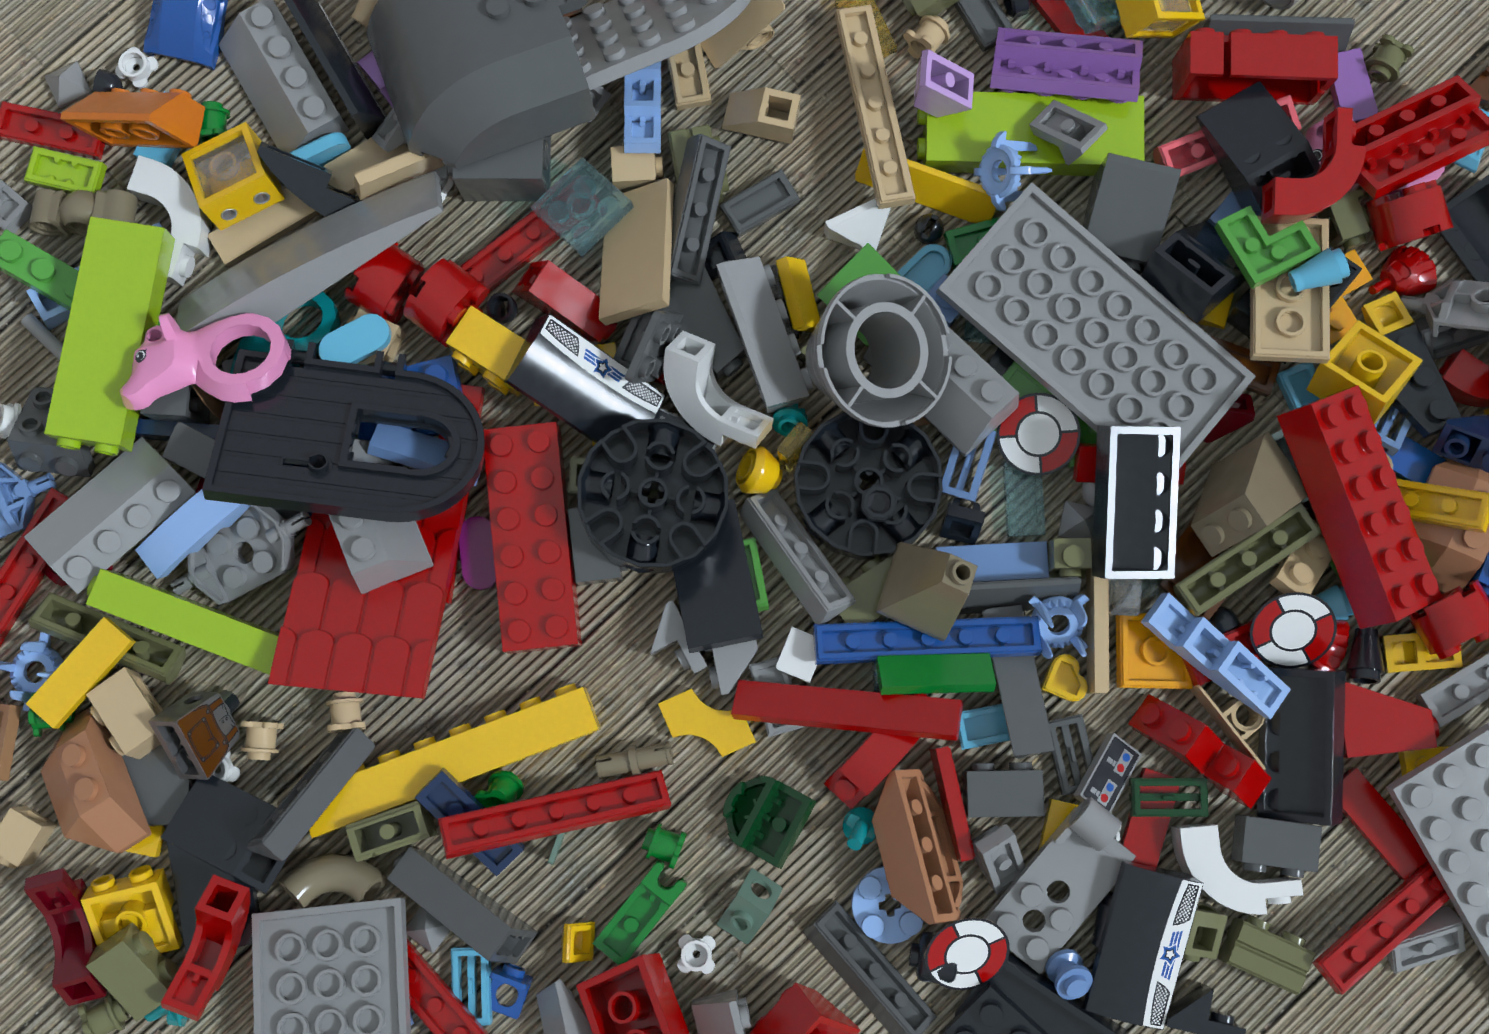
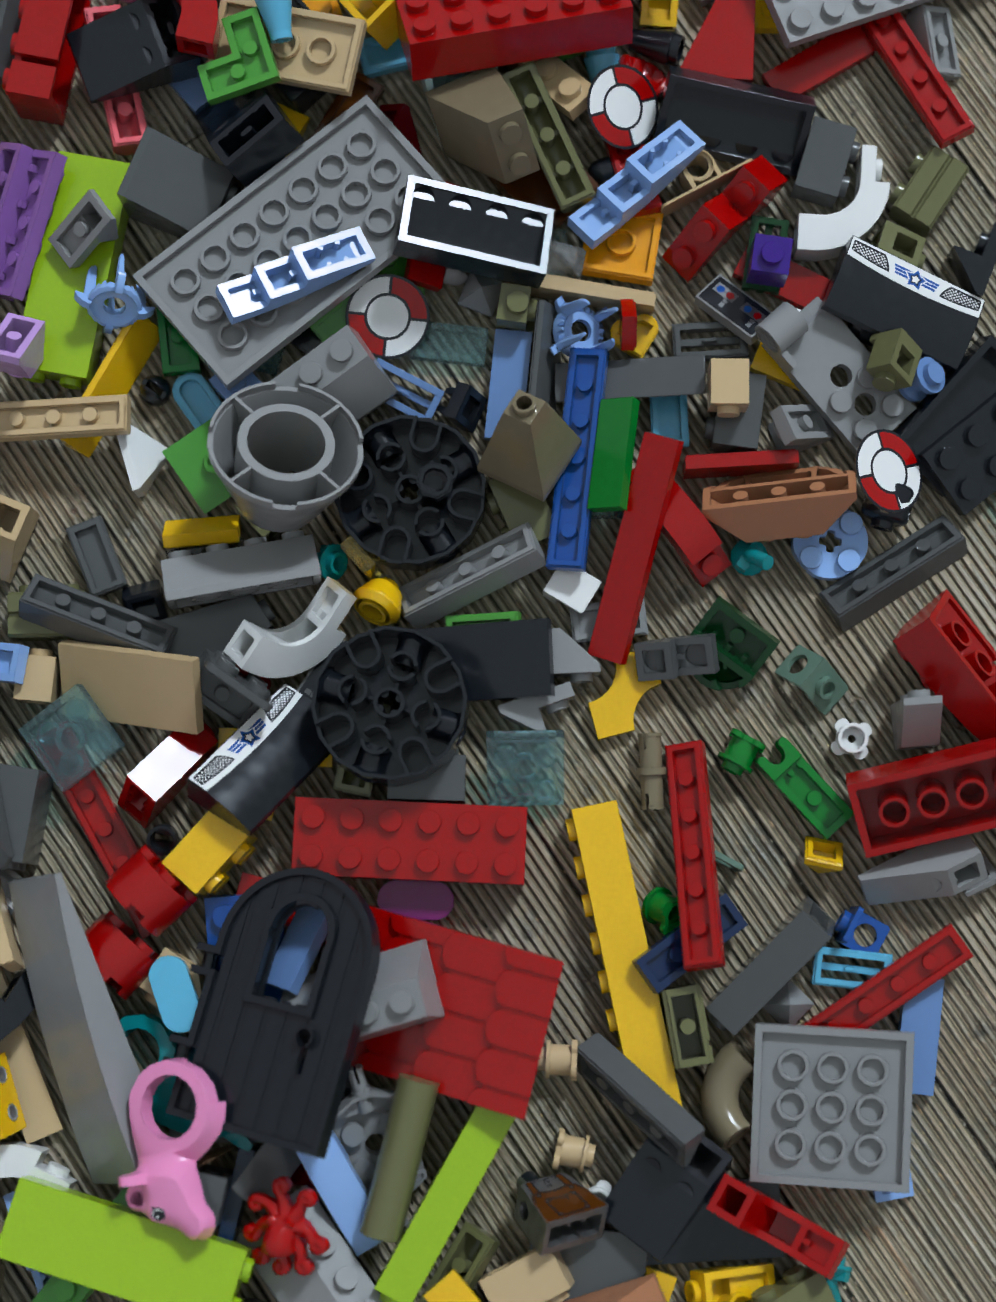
camera: 80 degrees left, 0 degrees up
(145, 477) = (285, 1229): none -> red animal
(223, 572) = (399, 1158): none -> olive brick
(618, 636) = (525, 767): none -> clear light blue plate
(748, 767) = (676, 657): none -> dark grey slope
(1024, 778) = (728, 386): none -> tan brick
(1058, 335) = (296, 275): none -> light blue slope
(1071, 669) = (628, 324): none -> red tile
(1081, 942) = (893, 360): none -> olive brick
(1161, 801) = (769, 260): none -> dark purple brick

